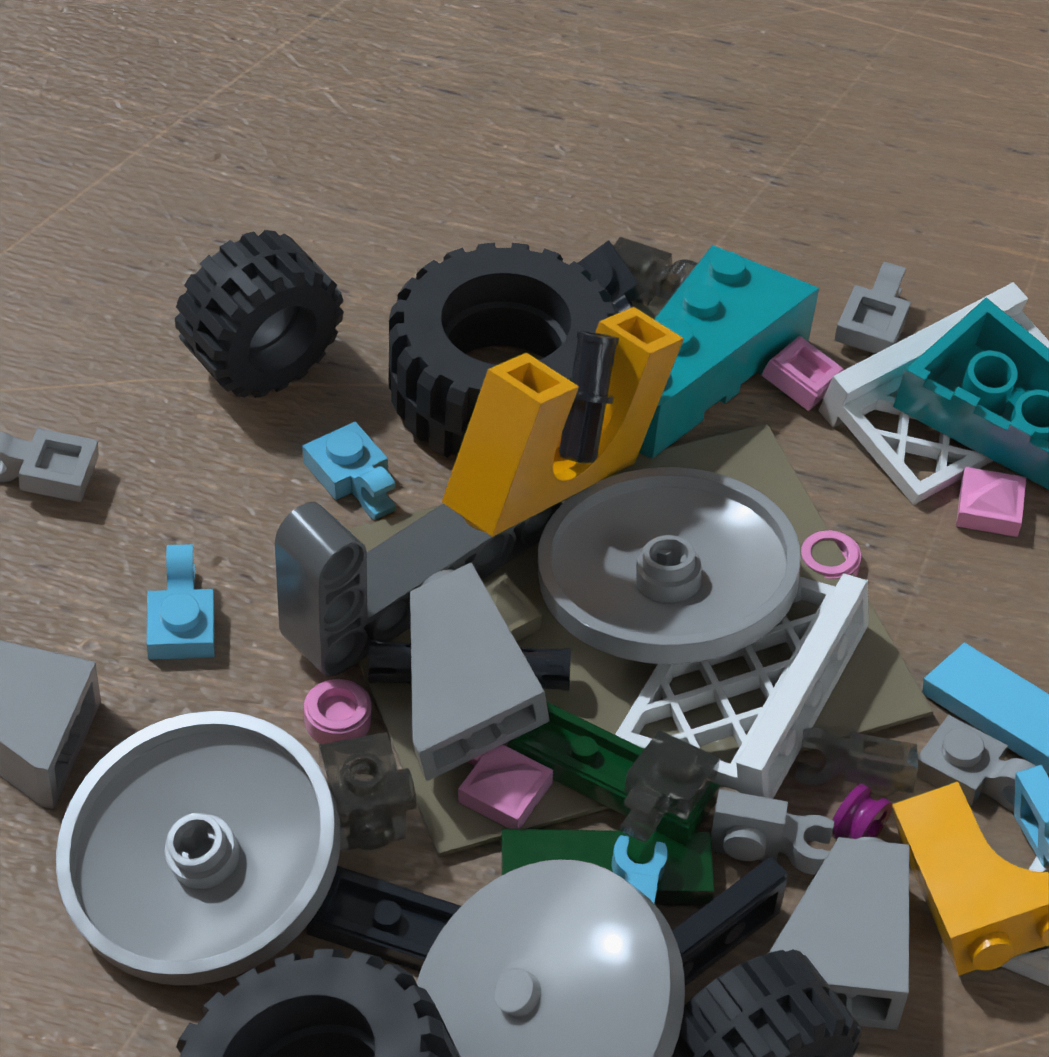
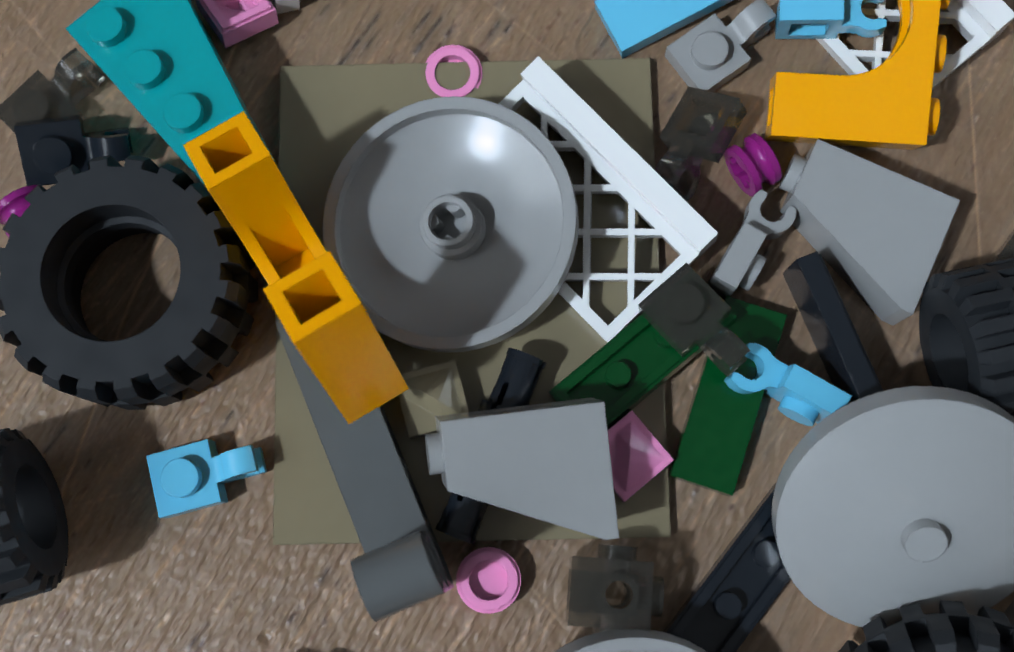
camera: 65 degrees left, 30 degrees up
(592, 374) = (273, 230): black axle -> none

